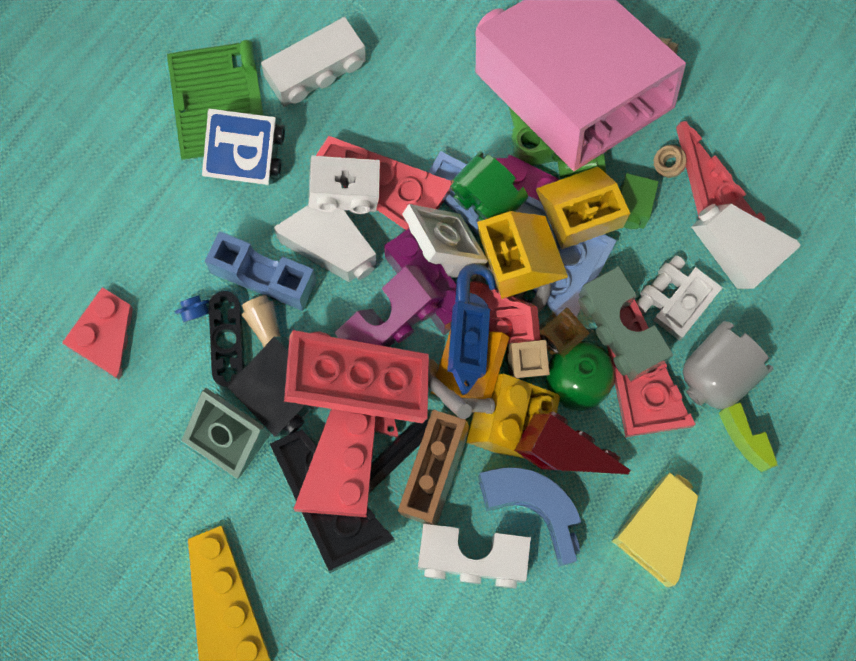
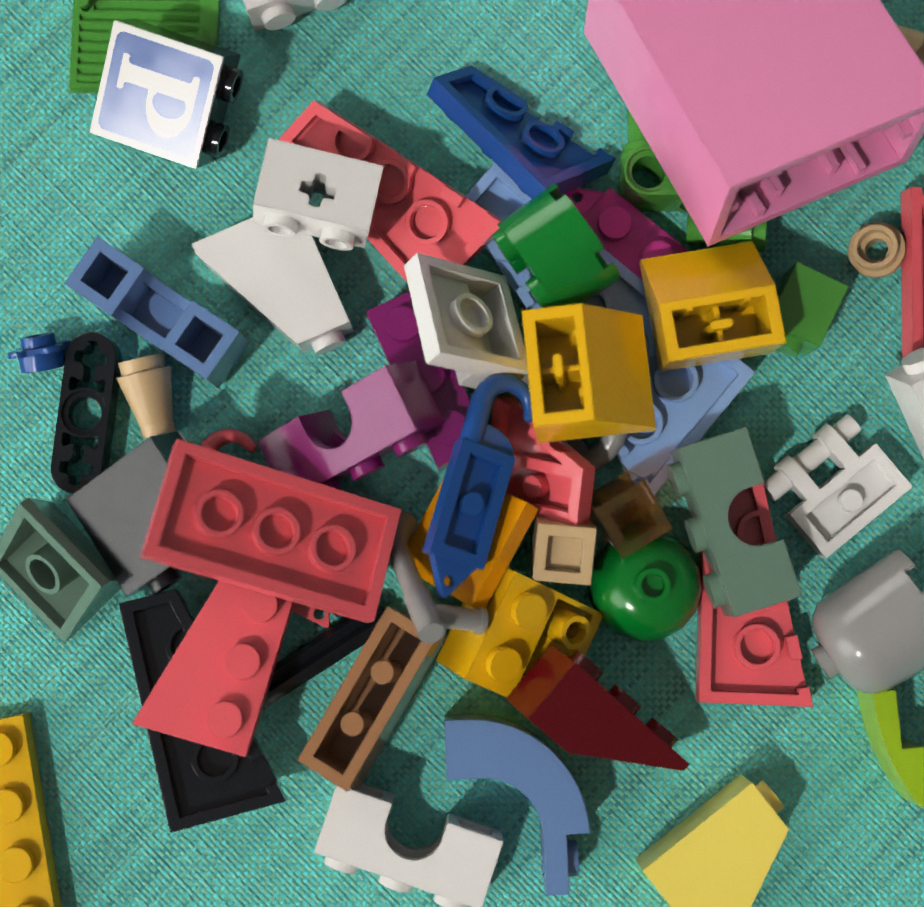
camera: 15 degrees right, 10 degrees up
(438, 130) = (514, 139): none -> blue wing

